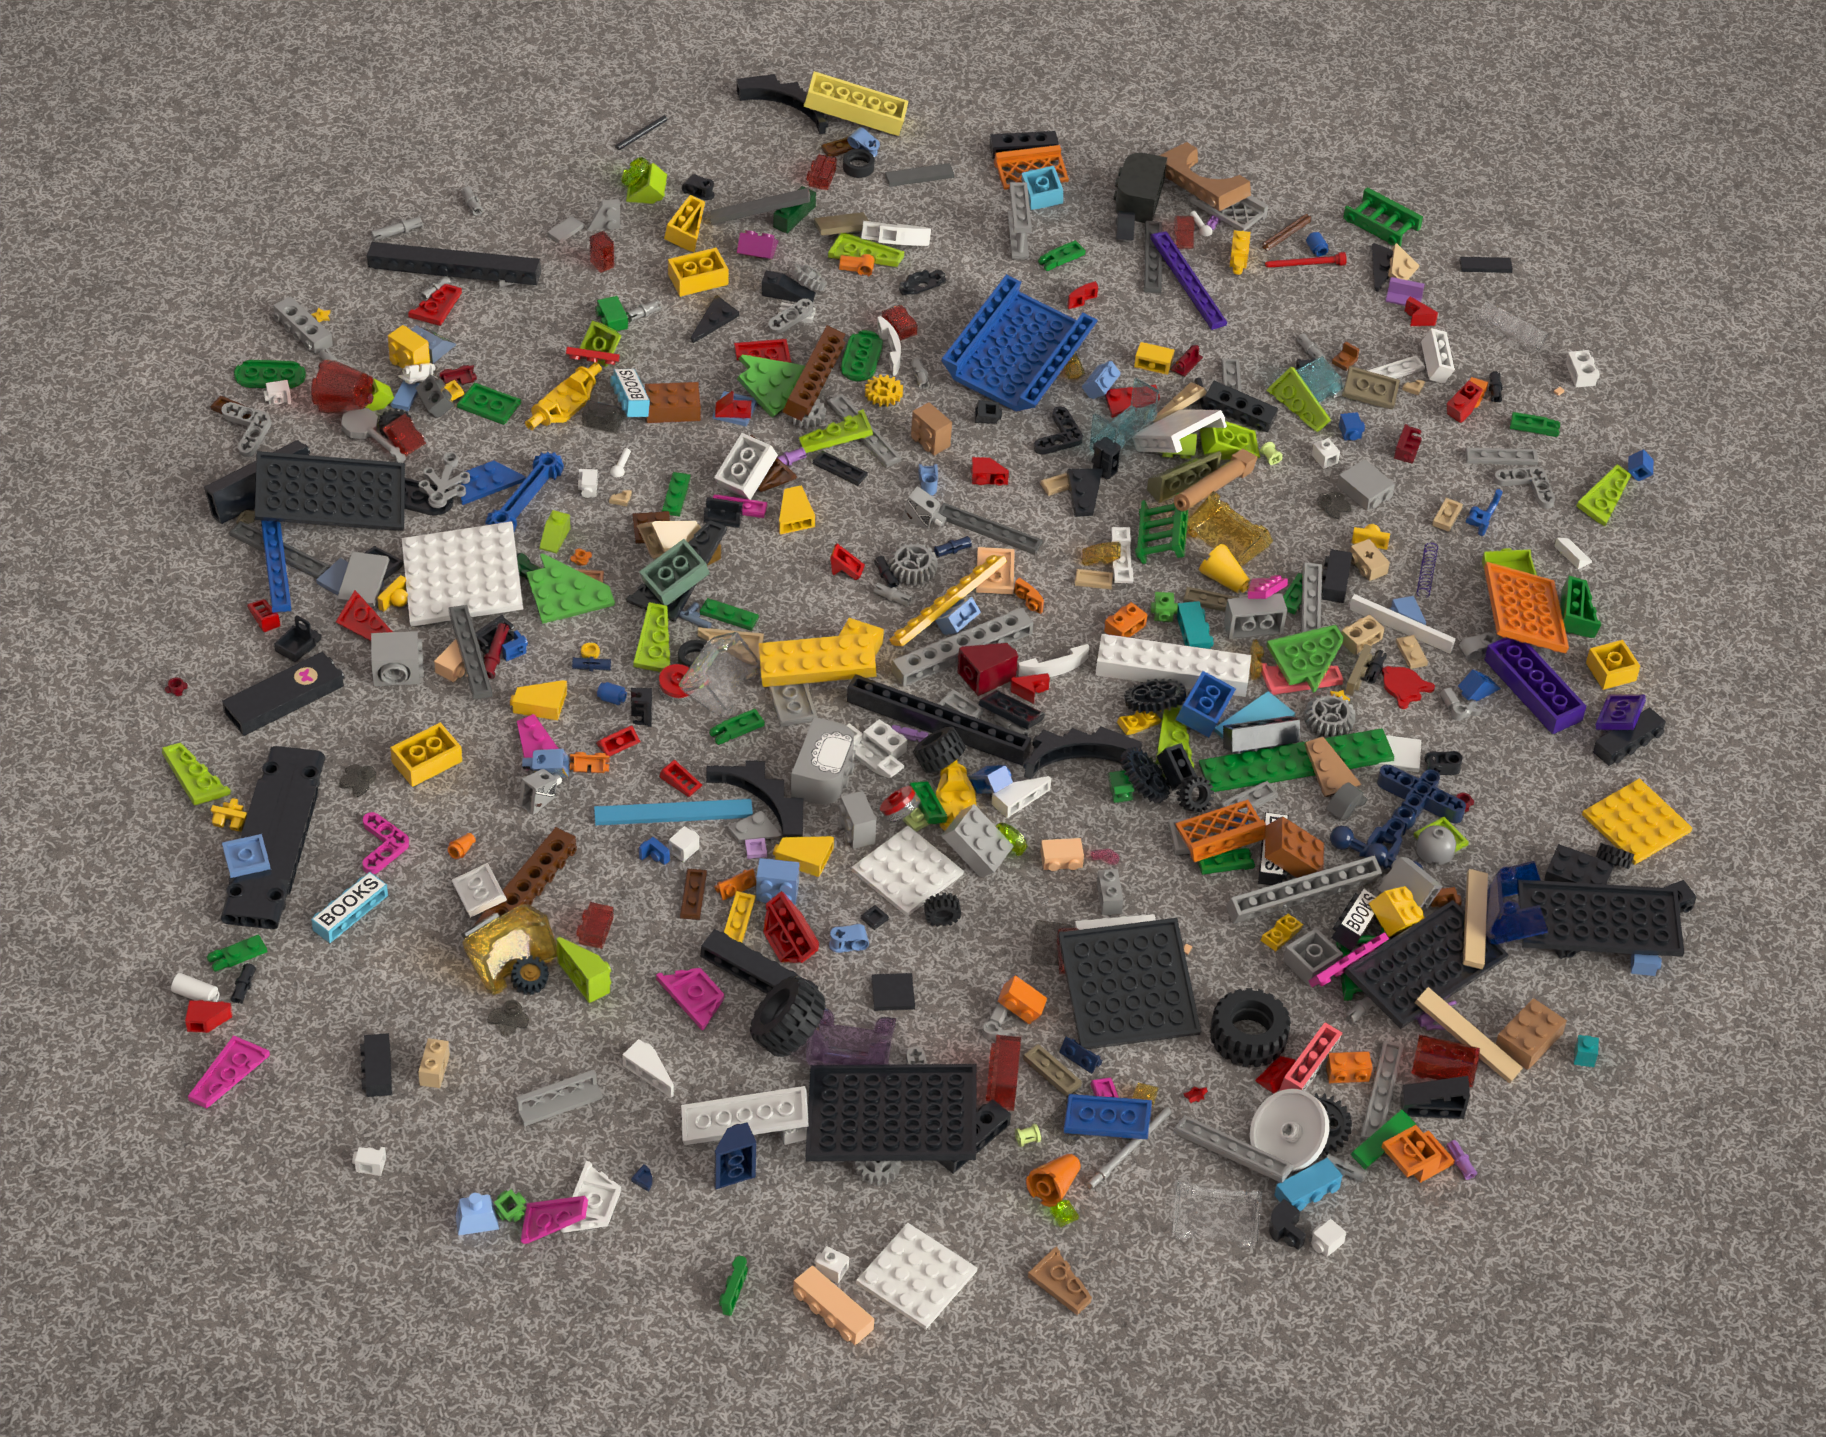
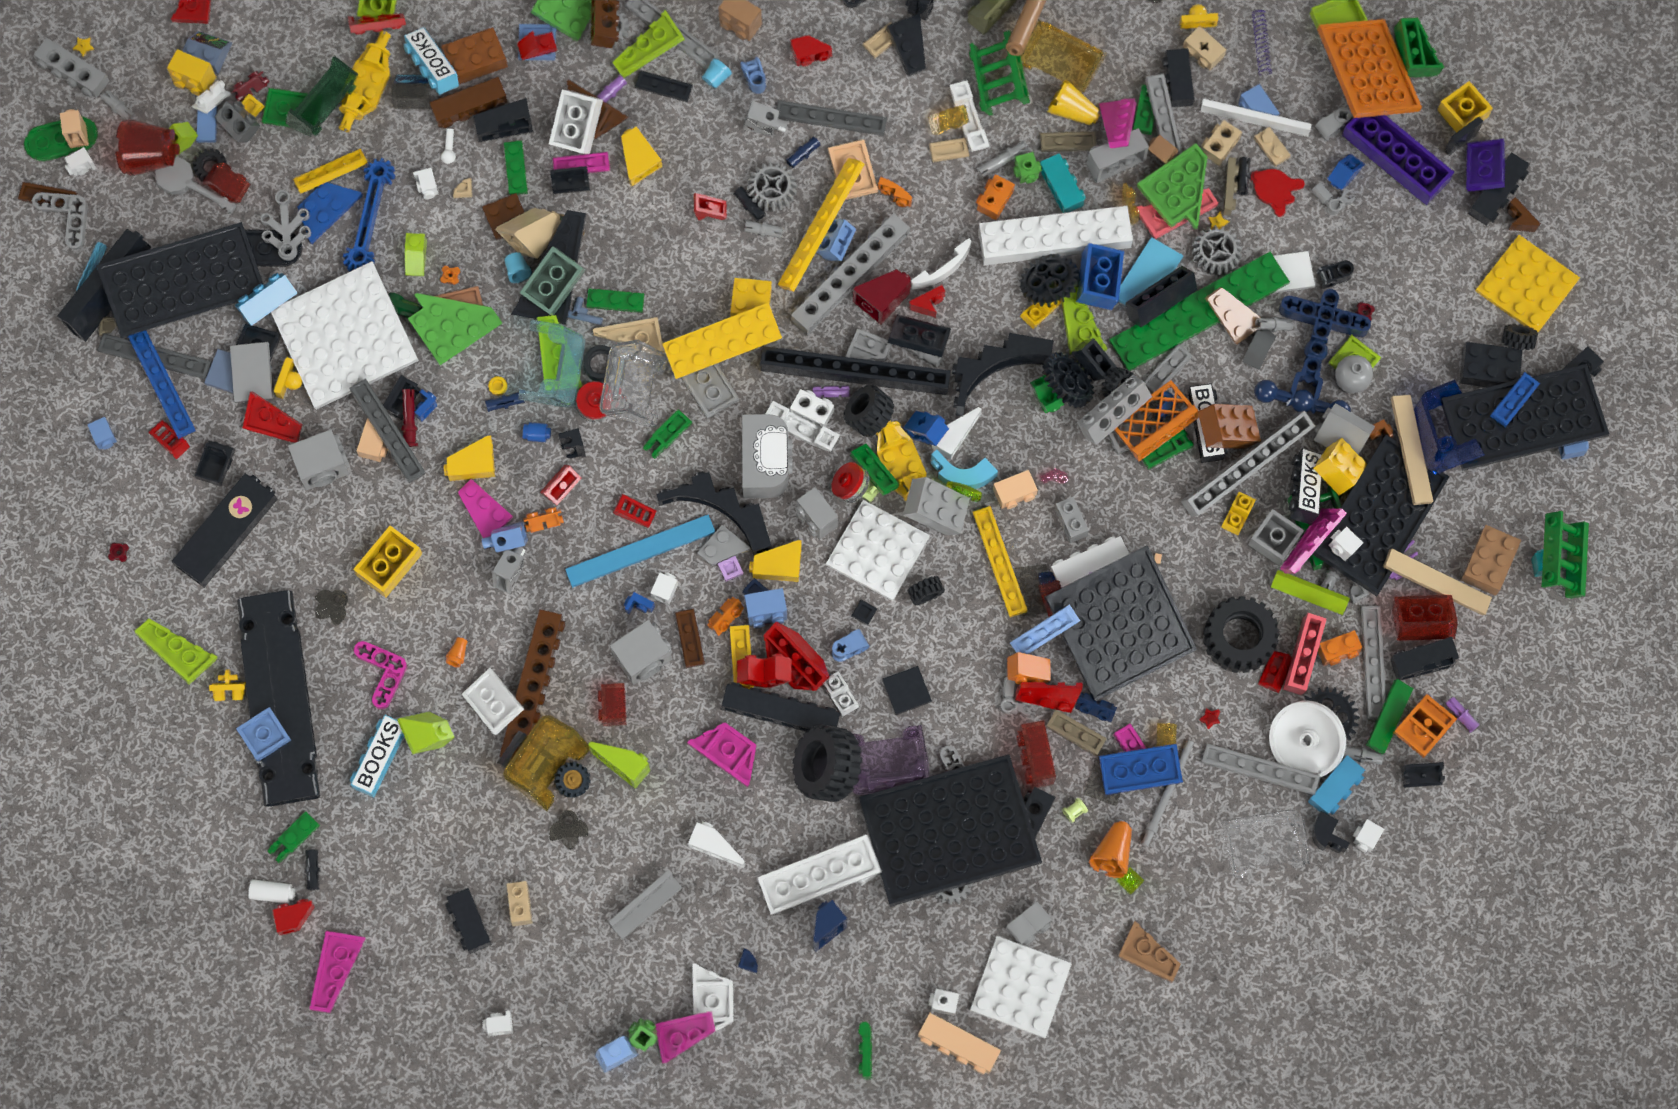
camera: 15 degrees left, 25 degrees up
(204, 592) = (102, 433): none -> medium blue brick
(284, 361) = (74, 128): none -> light nougat brick
(400, 528) = (265, 298): none -> brick
(403, 898) = (425, 731): none -> lime slope
(503, 454) = (330, 171): none -> yellow tile
(521, 394) = (323, 98): none -> clear green windscreen
(640, 886) = (641, 652): none -> light grey brick
(642, 560) = (517, 268): none -> medium azure piece
(650, 659) = (564, 389): none -> clear light blue windscreen
(653, 434) = (468, 102): none -> reddish brown brick
(680, 454) = (503, 121): none -> black wedge
(755, 933) = (764, 671): none -> red brick
(825, 976) = (840, 694): none -> white slope
(893, 467) = (716, 73): none -> medium azure piece
(945, 1220) = (1029, 924): none -> light grey brick
(1026, 910) = (1000, 561): none -> yellow tile
(1033, 831) = (974, 477): none -> medium azure arch
(1036, 1027) = (1056, 697): none -> red wing
(1053, 965) = (1045, 630): none -> light blue tile
(1139, 598) = (1002, 159): none -> light grey pin
(1210, 803) = (1114, 409): none -> light grey brick
(1301, 620) = (1162, 149): none -> medium nougat brick
(1334, 1014) = (1310, 592): none -> lime tile
(1368, 786) = (1274, 324): none -> light grey pin
(1380, 967) = (1344, 543): none -> white brick
(1384, 1028) = (1358, 593): none -> light grey tile
(1403, 1199) = (1423, 774): none -> black hinge
(1593, 897) = (1515, 399): none -> blue tile
(1605, 683) = (1464, 135): none -> black tile
(1624, 1045) = (1576, 555): none -> green fence
(1646, 765) = (1525, 220): none -> reddish brown slope

